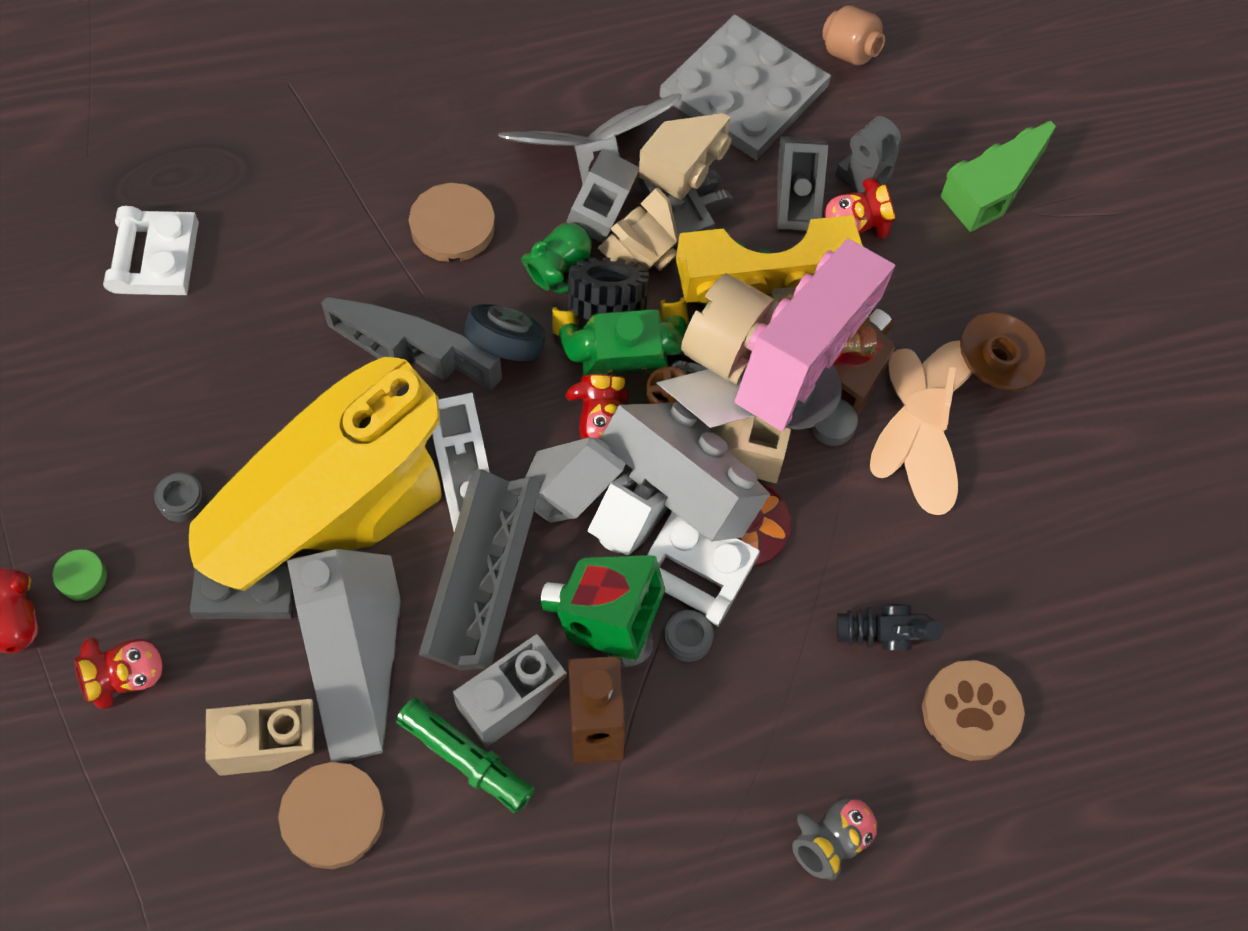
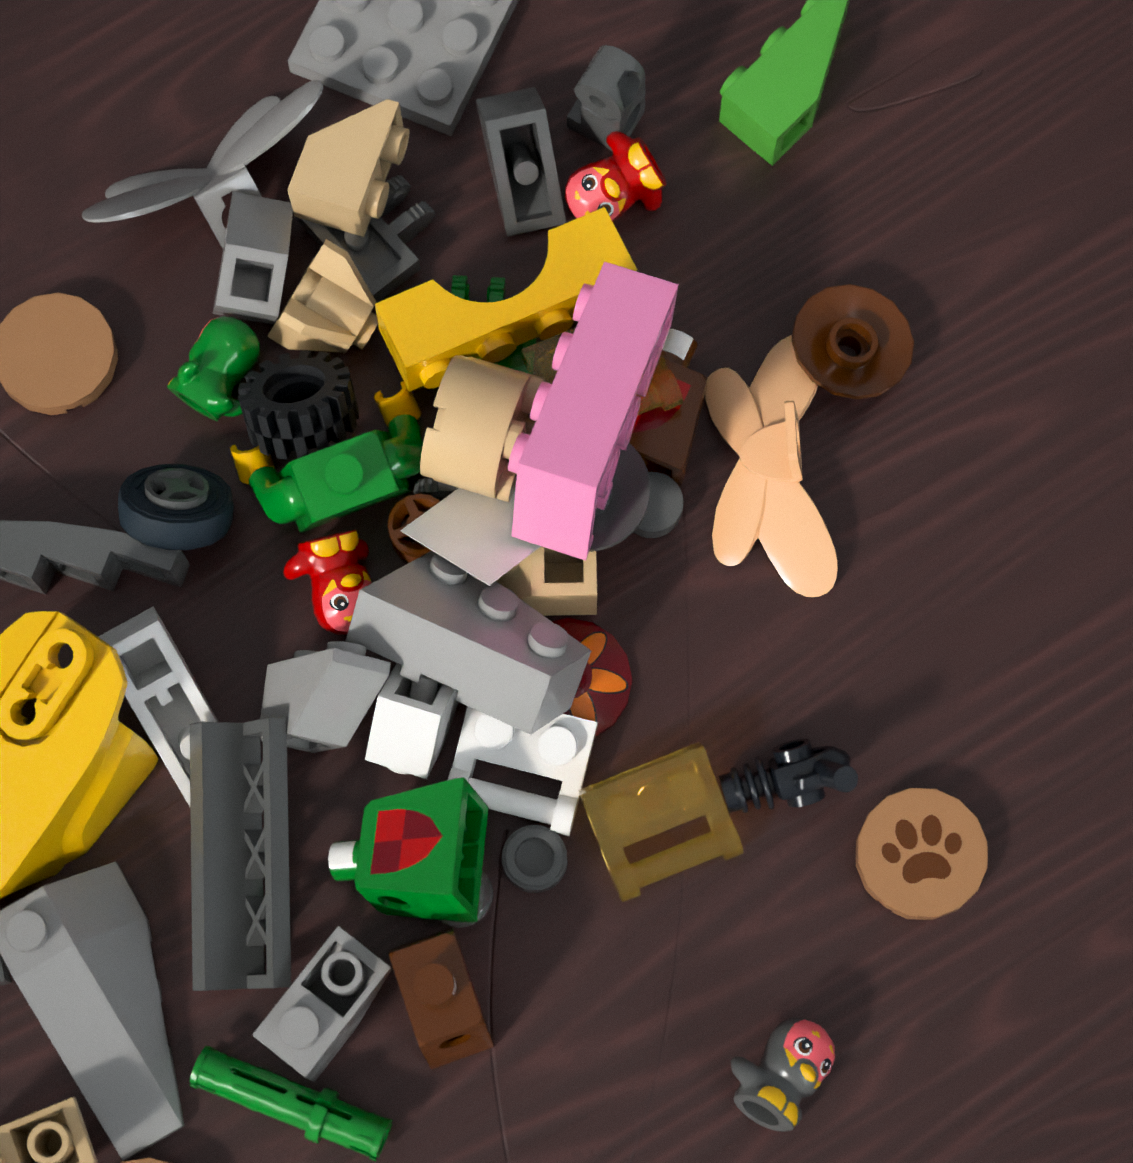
camera: 10 degrees left, 10 degrees up
(787, 616) = (655, 800): none -> clear yellow plate

